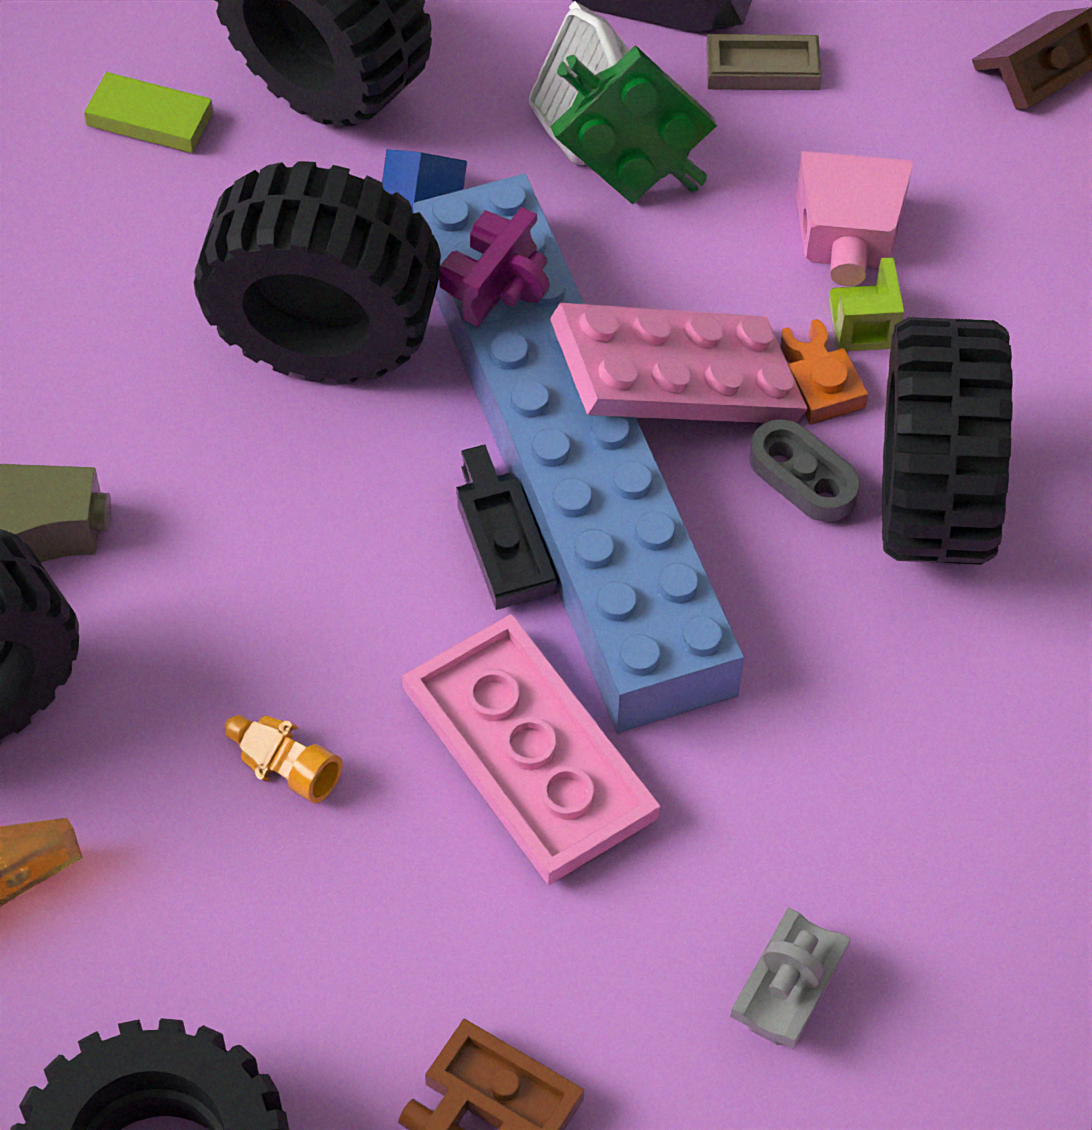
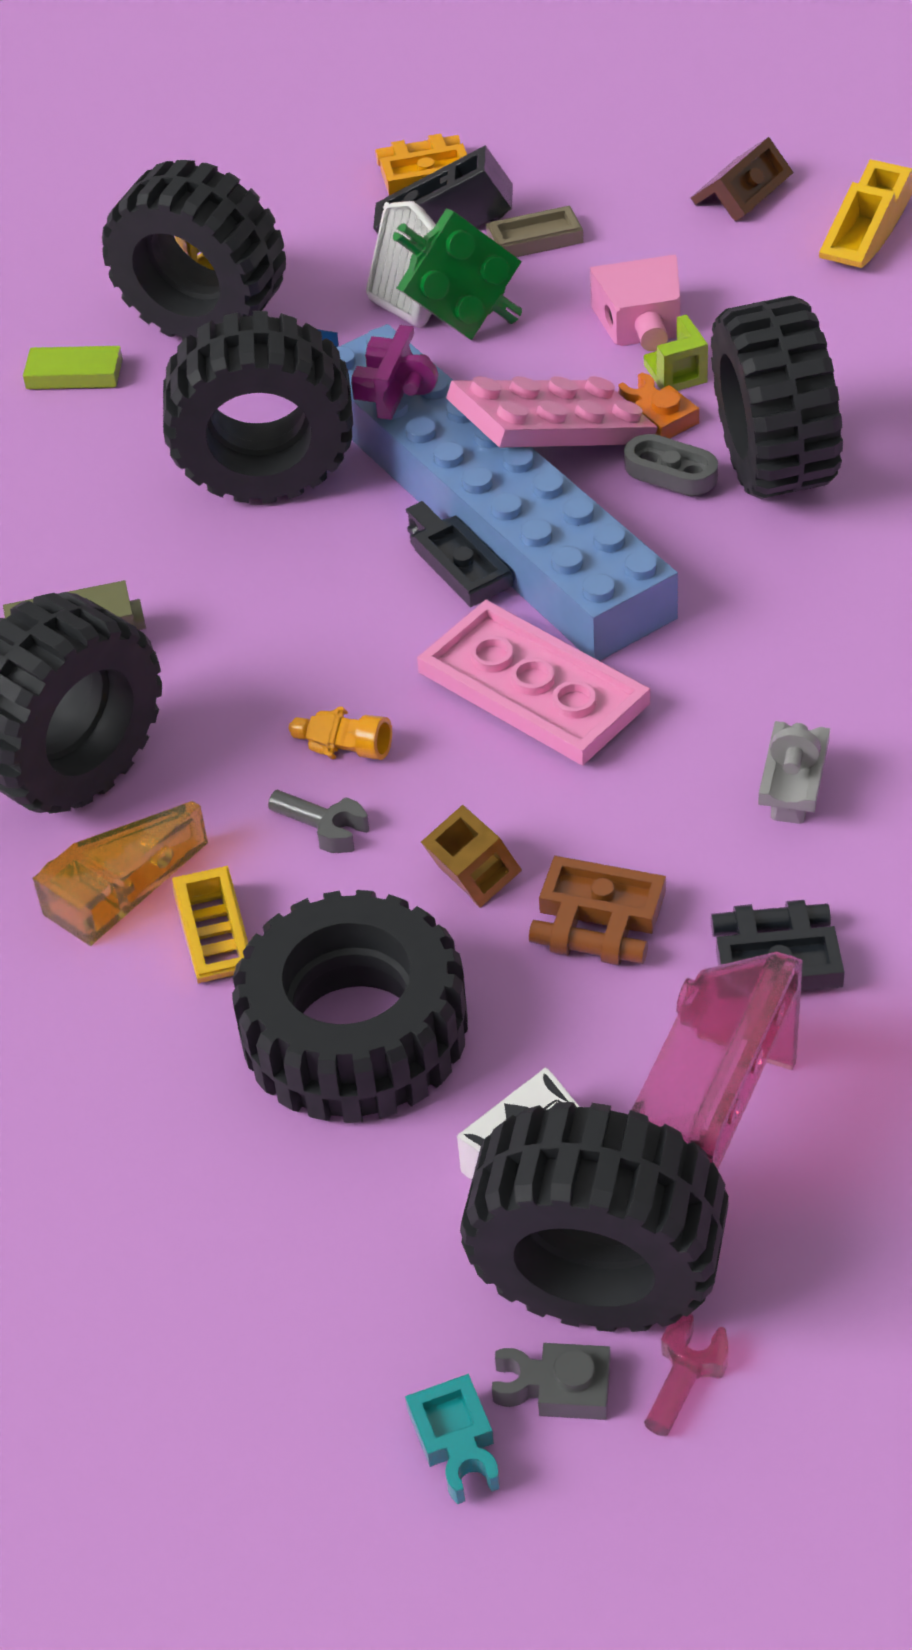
camera: 10 degrees left, 10 degrees down
(44, 931) = (201, 888): none -> yellow slope
(221, 869) = (327, 821): none -> dark grey bar
(367, 986) = (471, 855): none -> pearl gold brick

